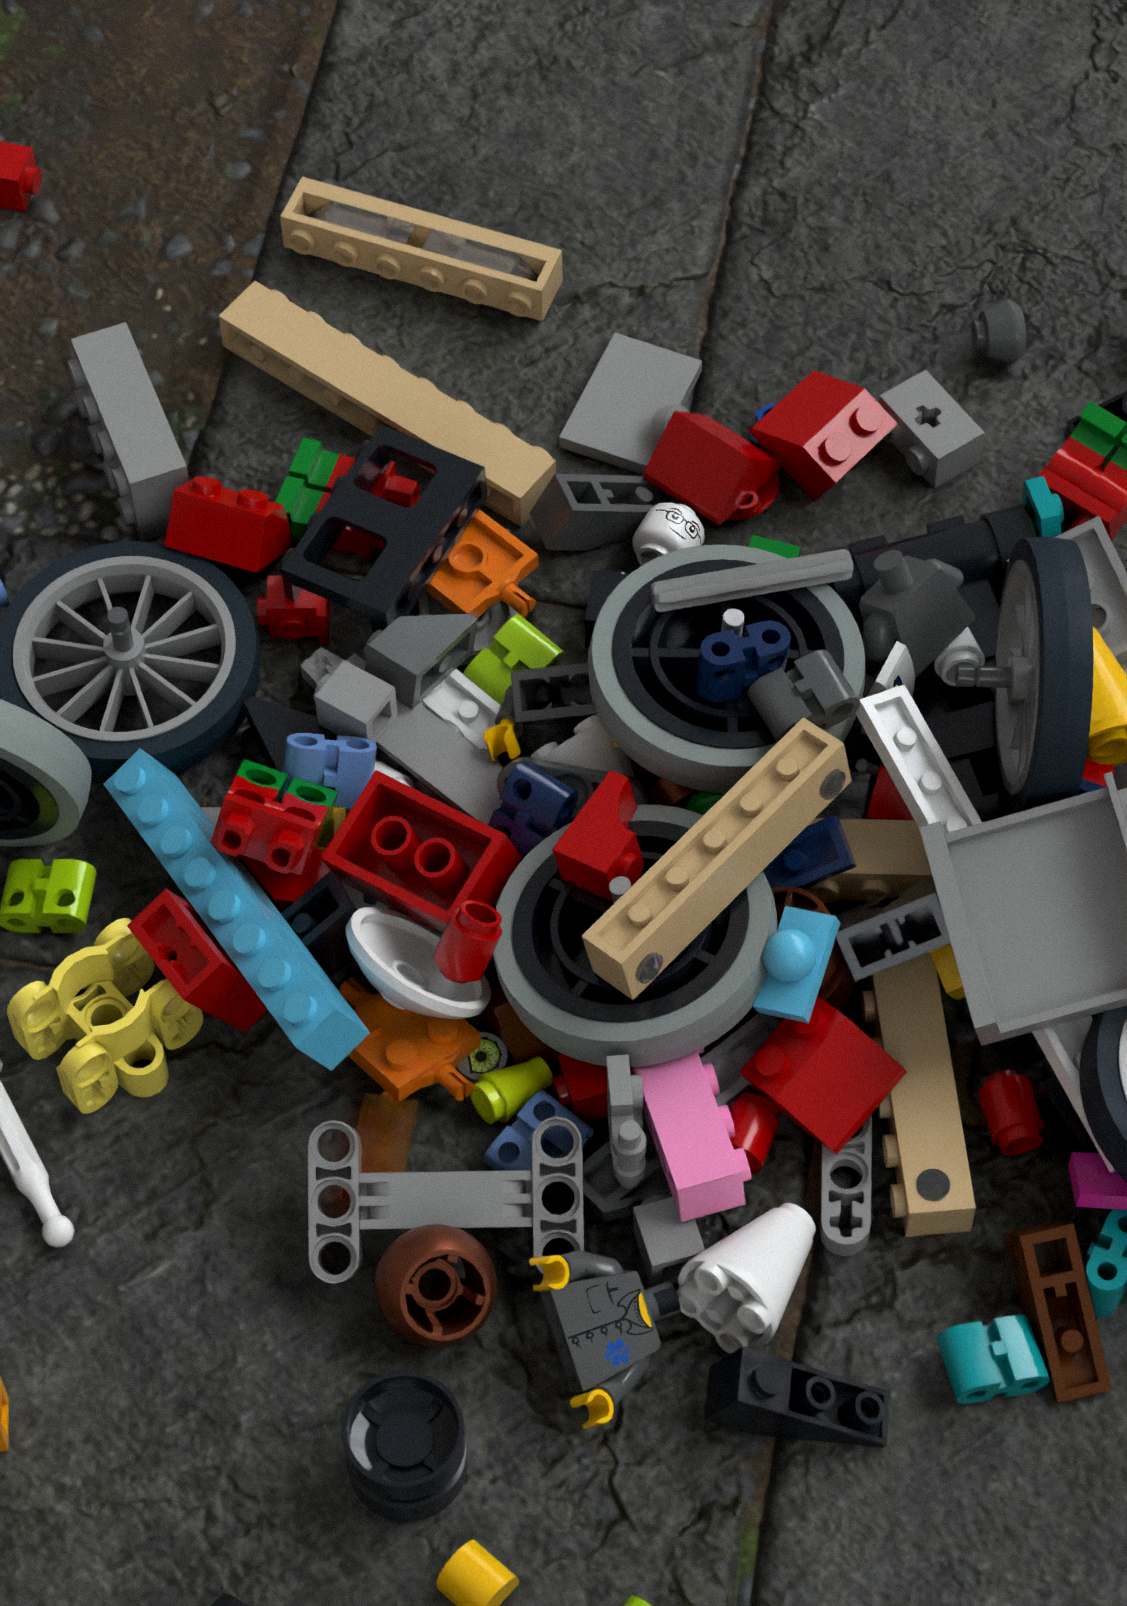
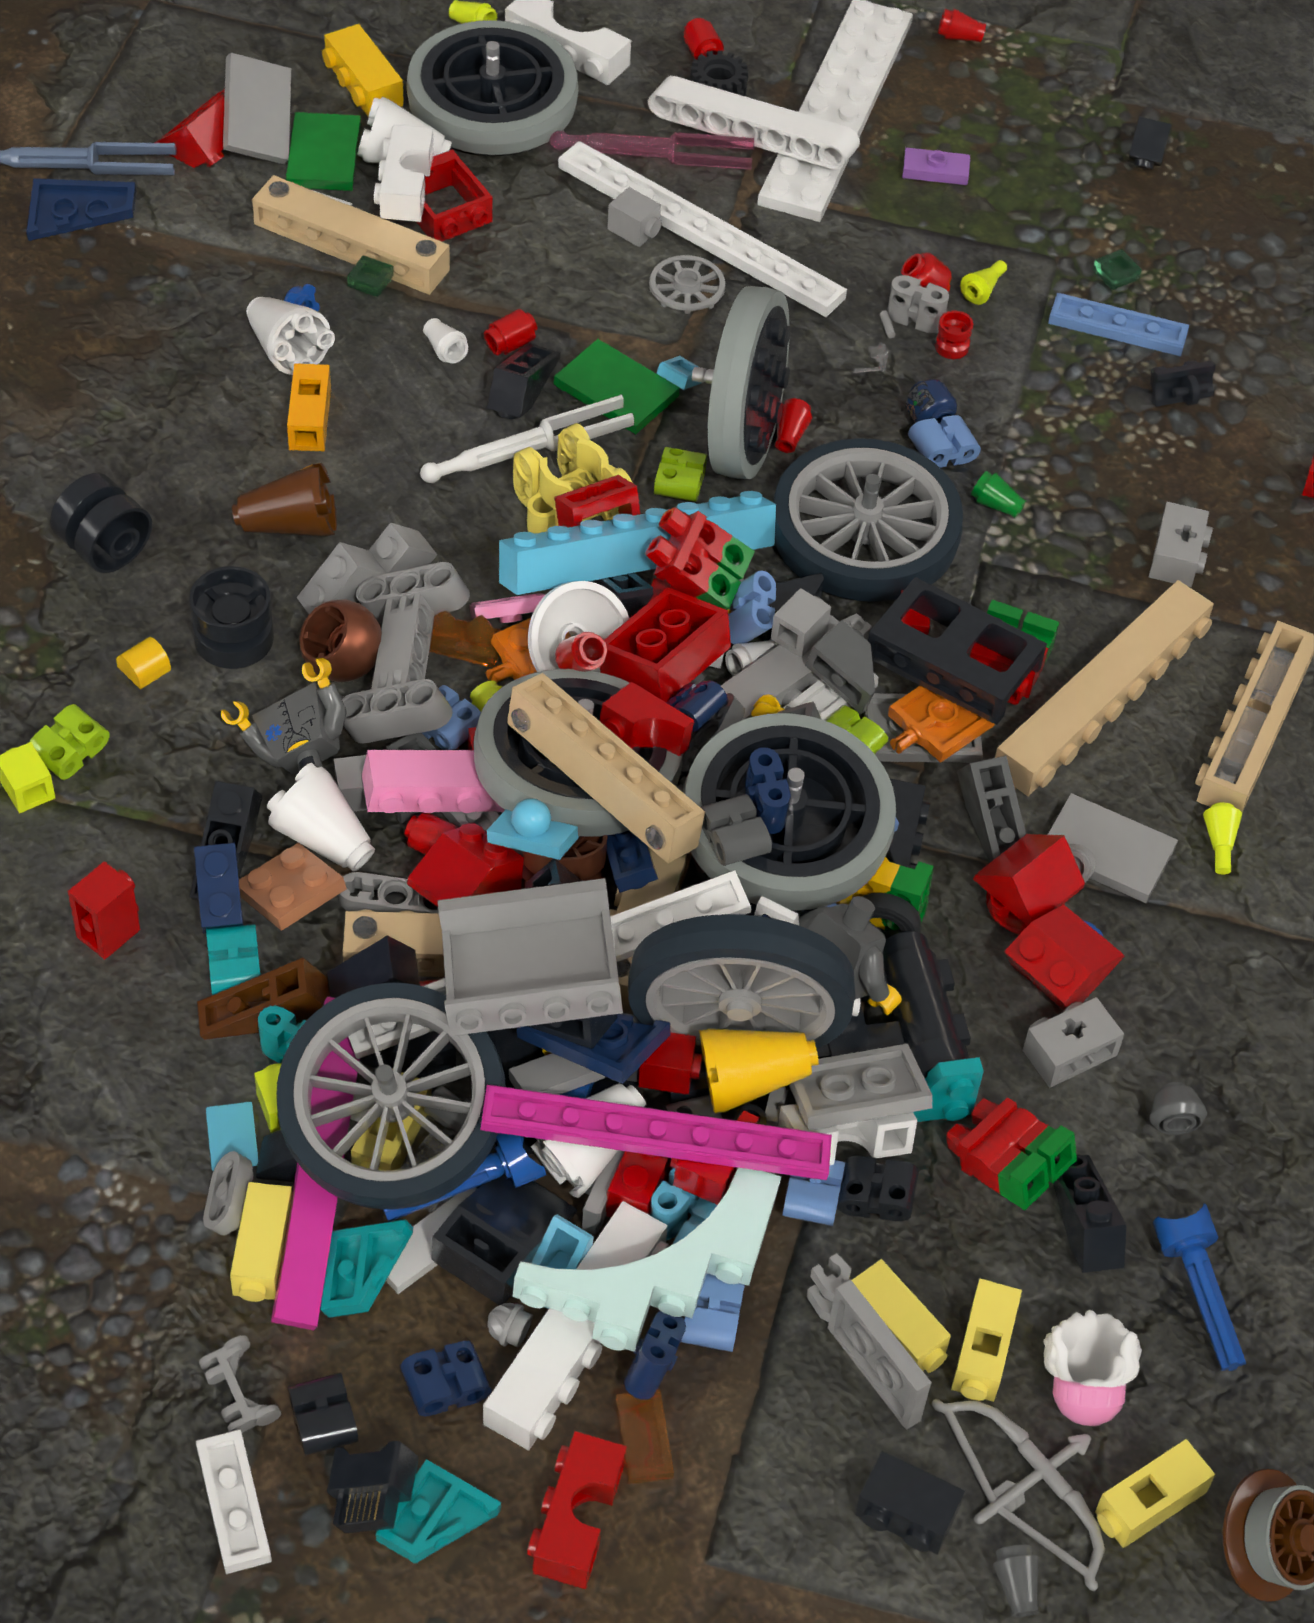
camera: 90 degrees right, 5 degrees down
(58, 524) = (998, 495): none -> green cone
(127, 427) = (1066, 525): light grey brick -> none
(156, 320) = (1180, 544): none -> light grey brick
(161, 1406) = (290, 505): none -> reddish brown cone
(227, 524) = (974, 565): red slope -> none
(284, 1285) = (349, 566): none -> light grey arch
(323, 1095) = (508, 609): none -> bright pink plate
(589, 290) = (1222, 826): none -> neon yellow cone
(625, 1121) = (445, 727): light grey plate -> none
(666, 530) = (962, 846): white head -> none
(751, 580) = (853, 819): light grey axle -> none
(860, 1305) = (290, 886): none -> nougat plate
(900, 1381) = (218, 886): none -> dark blue brick
(965, 1524) = (104, 909): none -> red brick
(1018, 1162) = (380, 963): none -> black brick

